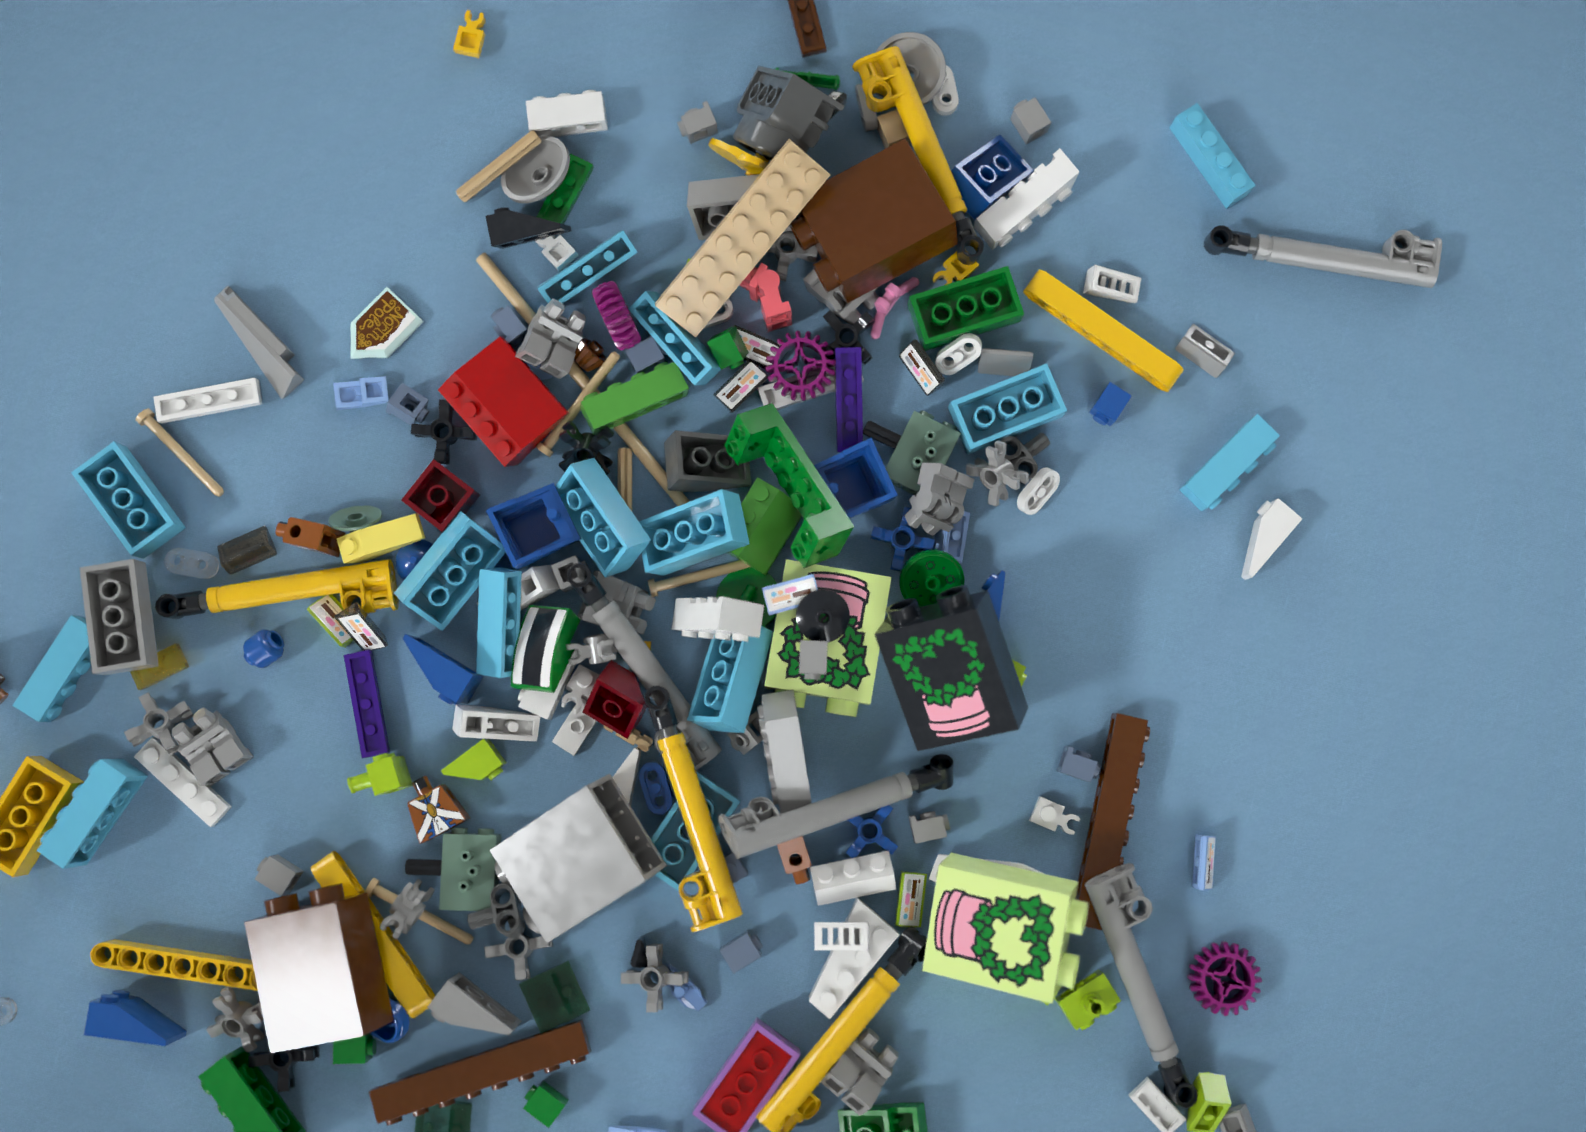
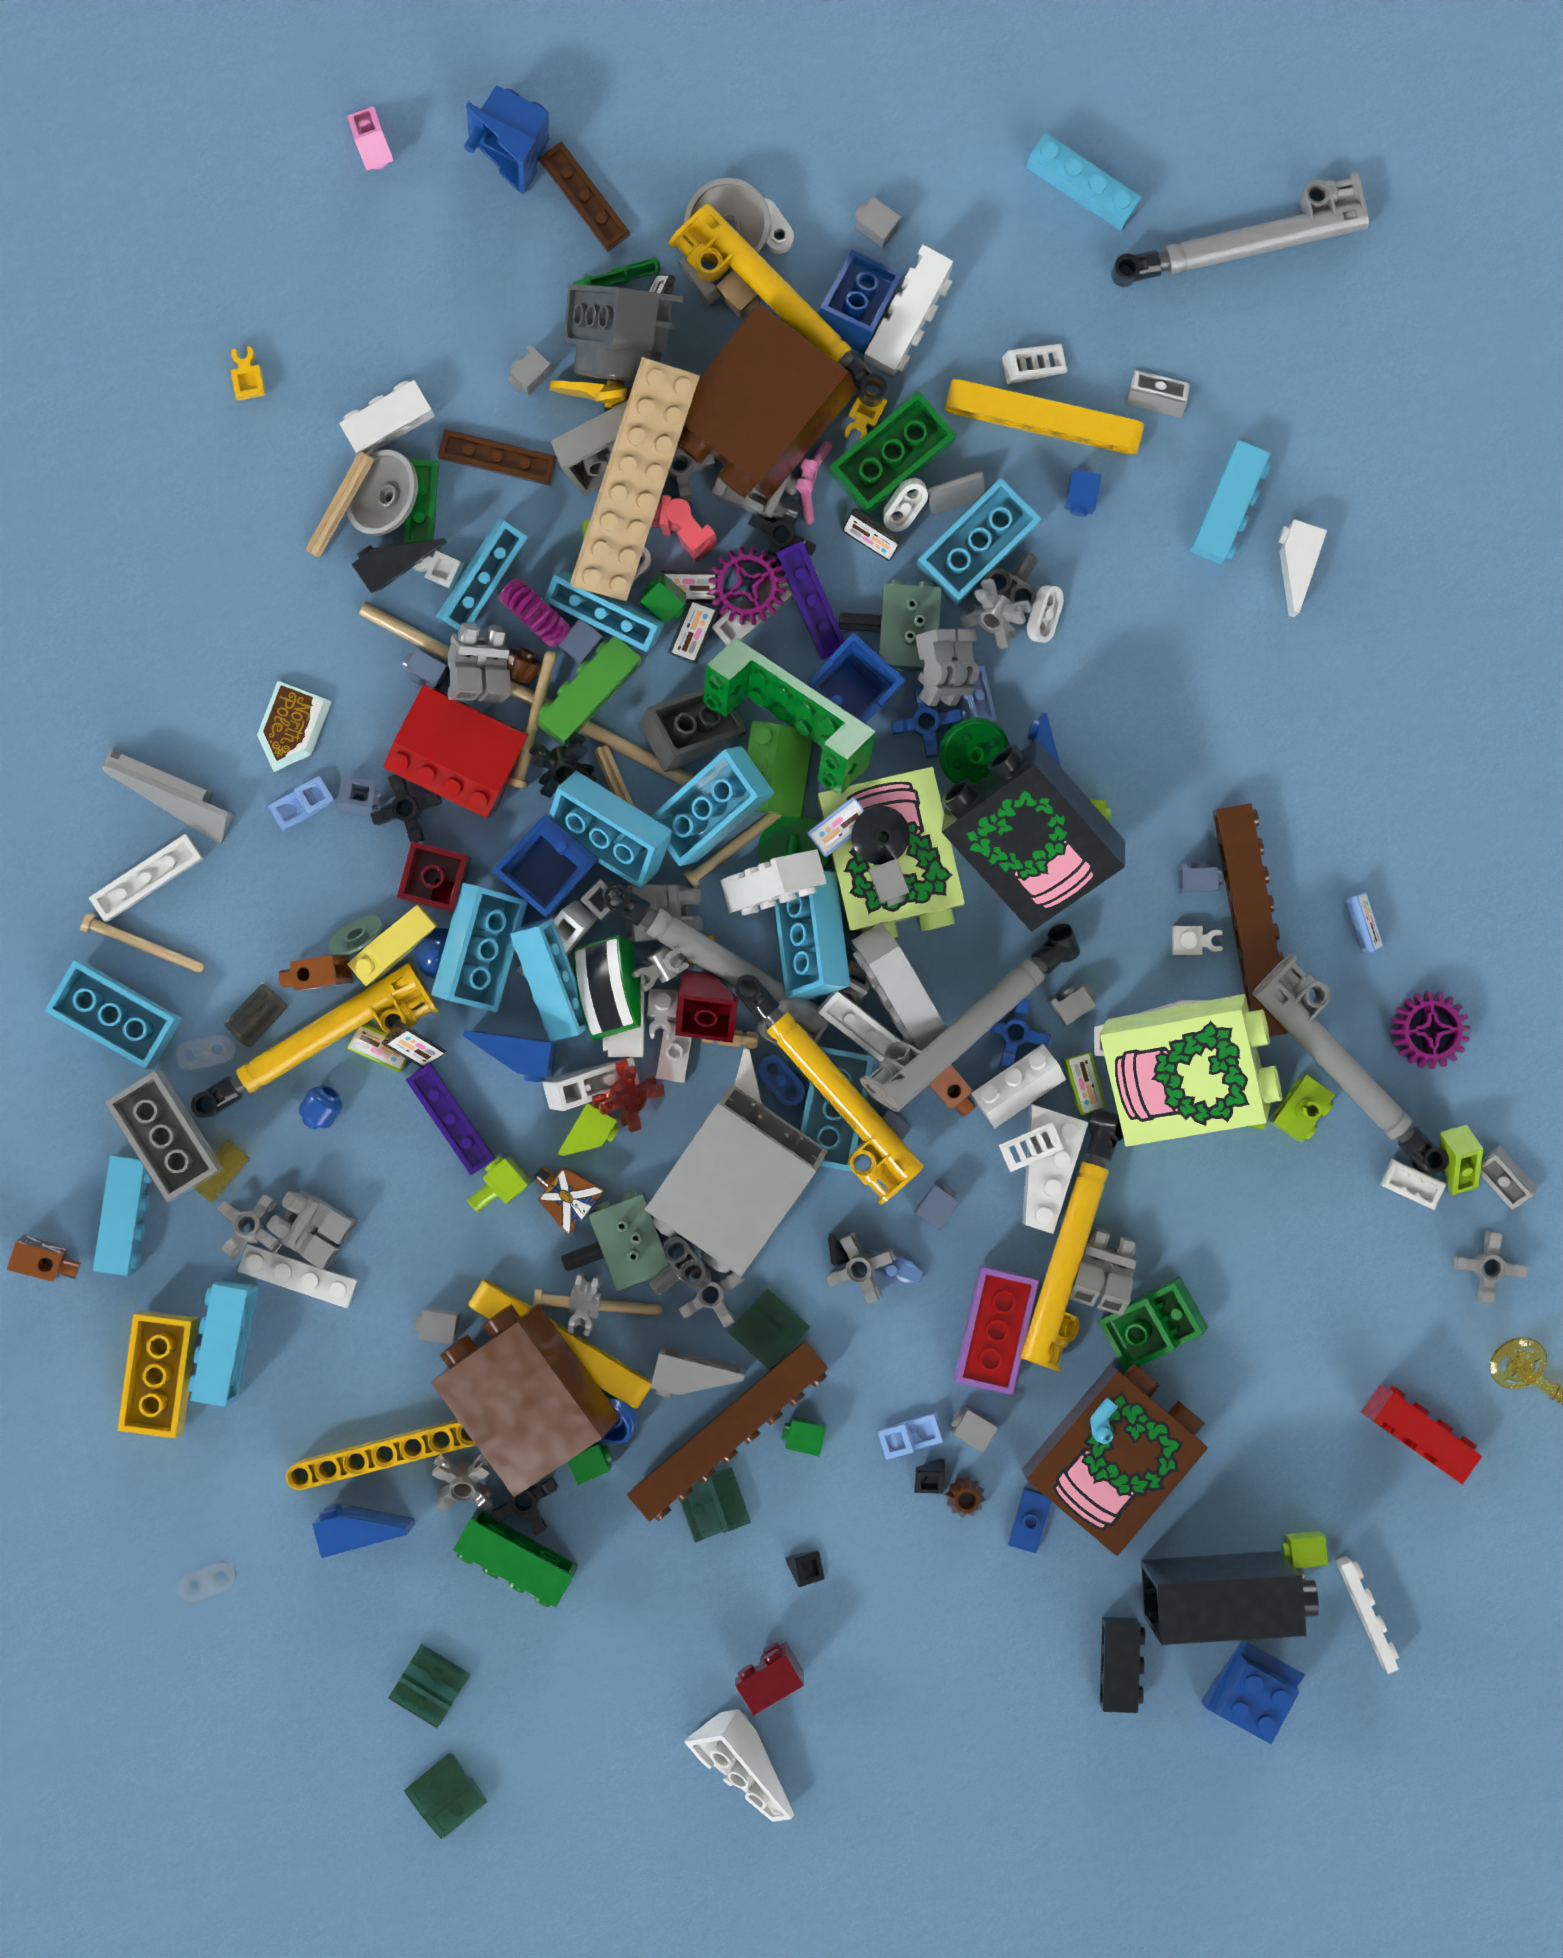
camera: 20 degrees left, 5 degrees up
(519, 738) = (619, 1097): none -> clear red pin
(642, 181) = (497, 457): none -> reddish brown tile
(739, 768) = (857, 1024): none -> white plate

